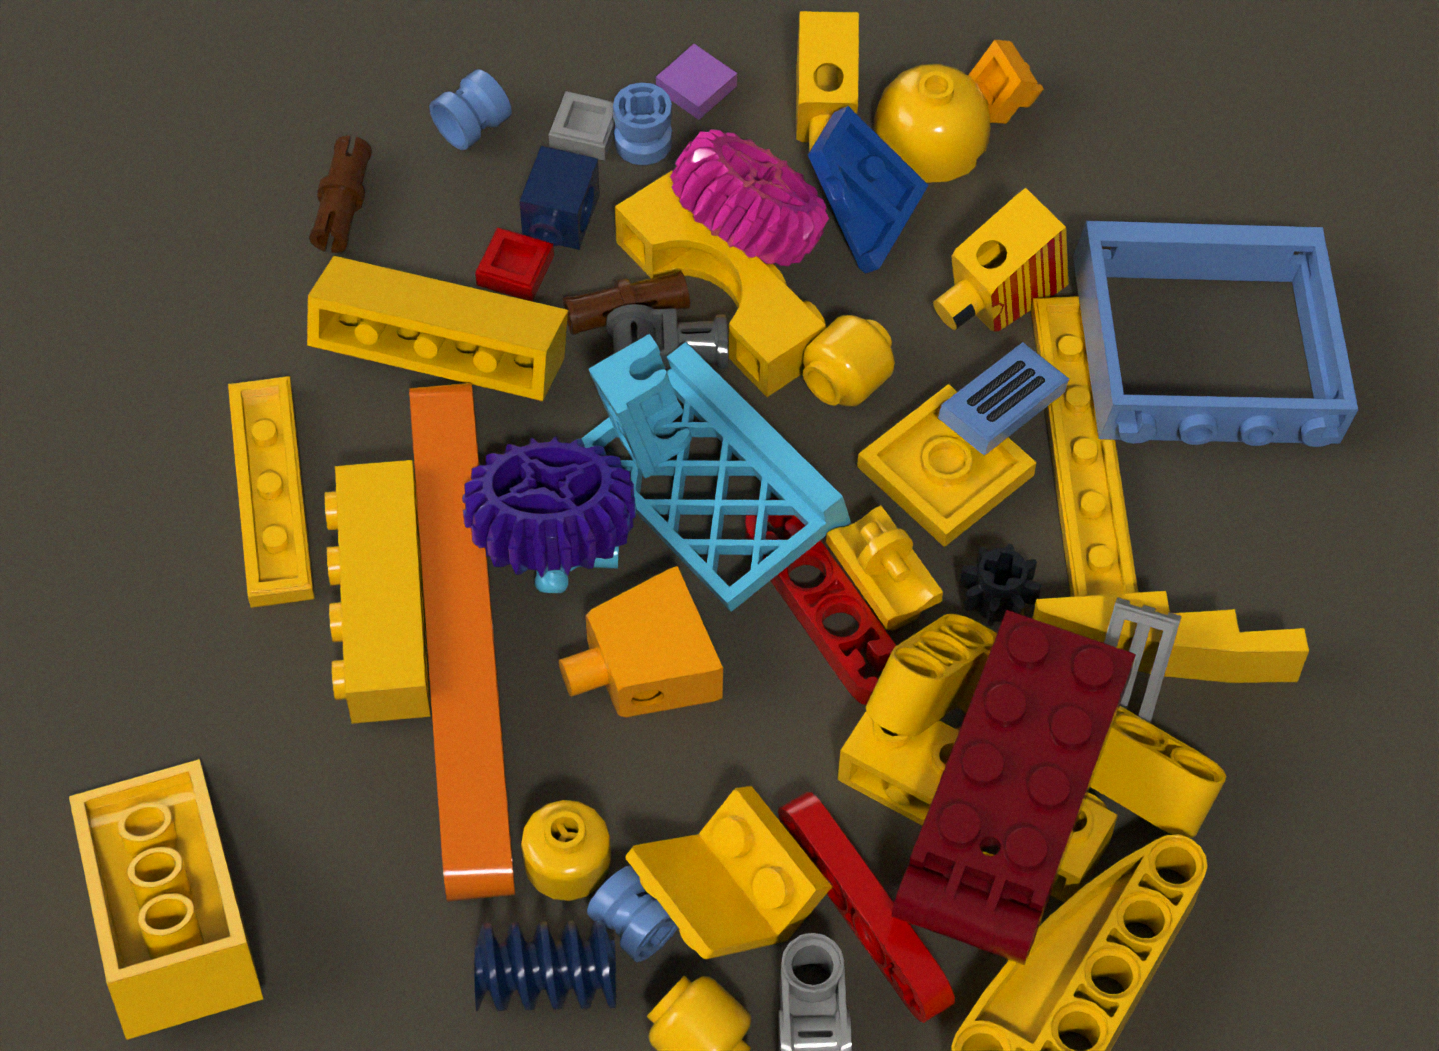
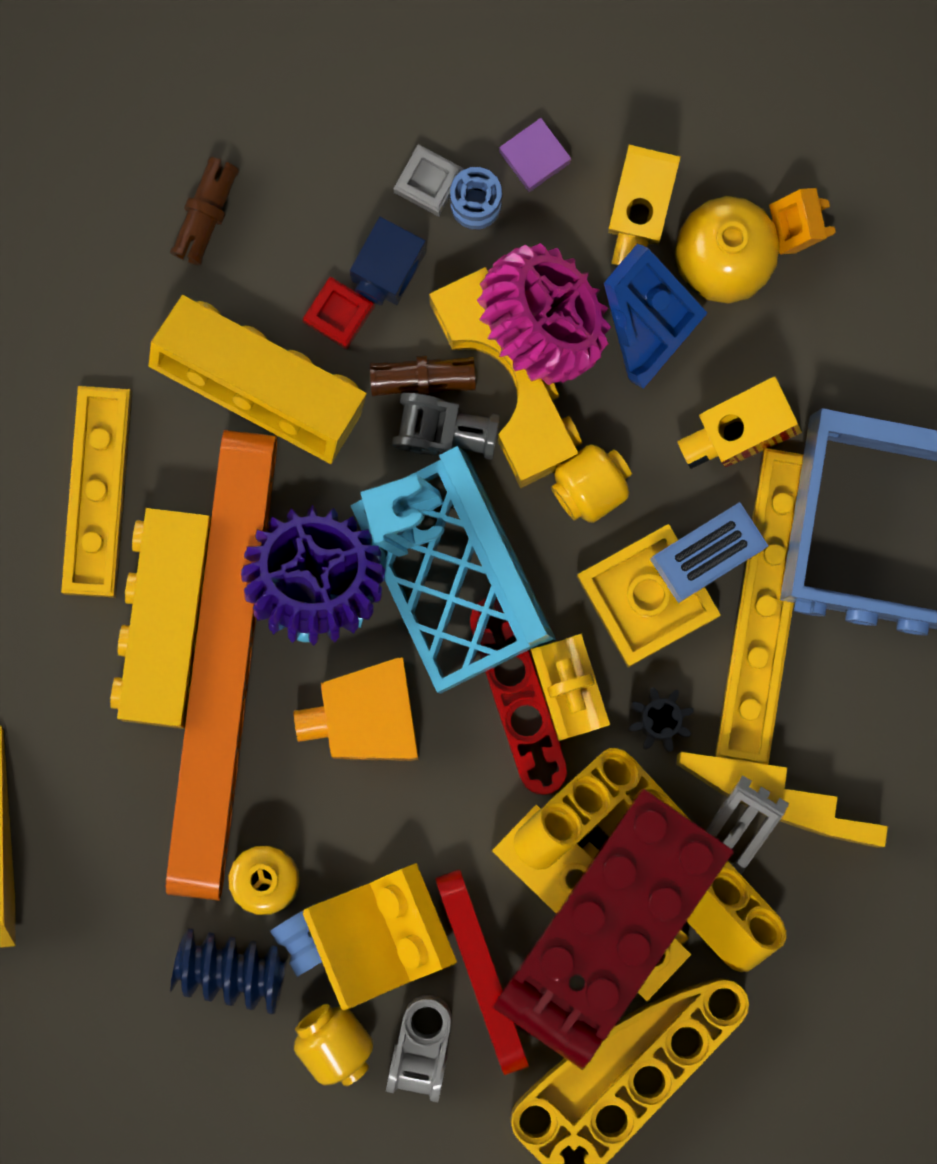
camera: 15 degrees right, 25 degrees up
(473, 107) = (330, 150): medium blue wheel -> none

